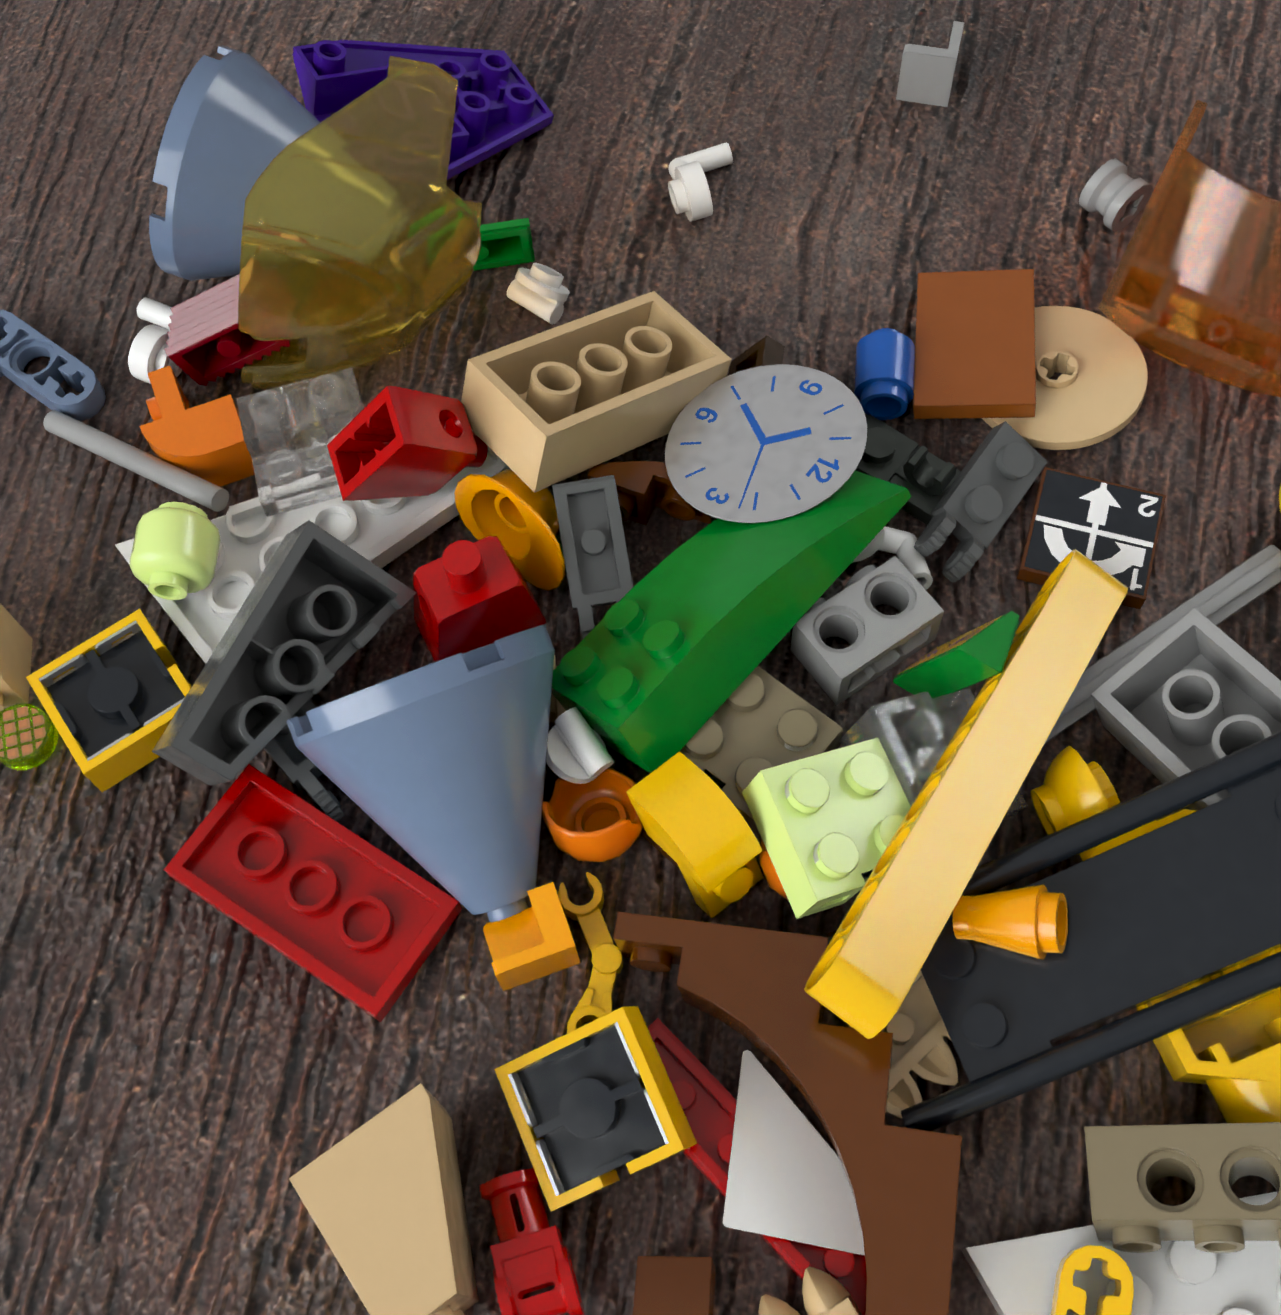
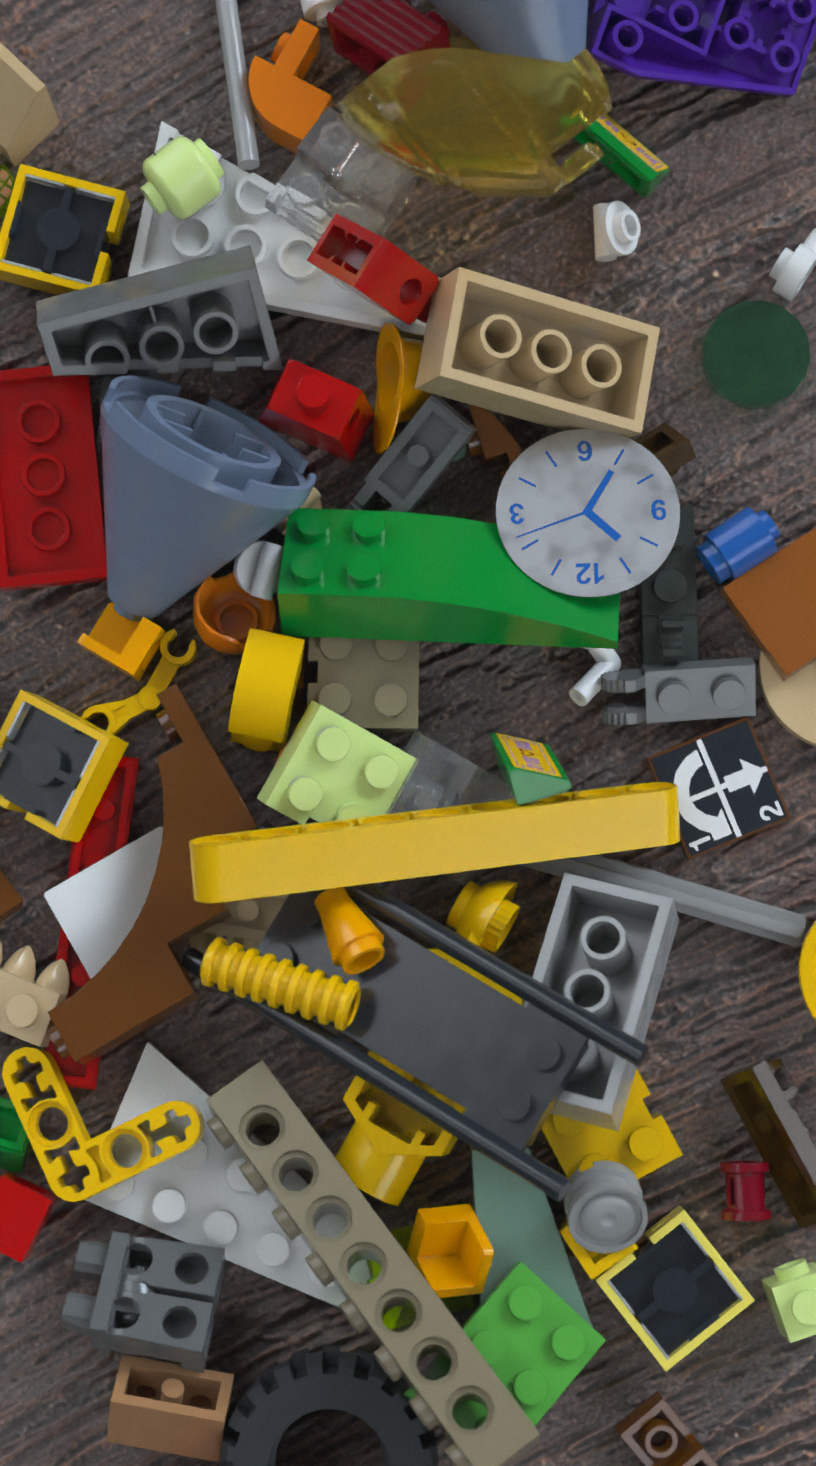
camera: 40 degrees right, 20 degrees up
(732, 266) = (755, 354): none -> clear green tile
(875, 638) = (507, 701): light grey brick -> none
(1022, 1031) = (280, 983): none -> yellow piece

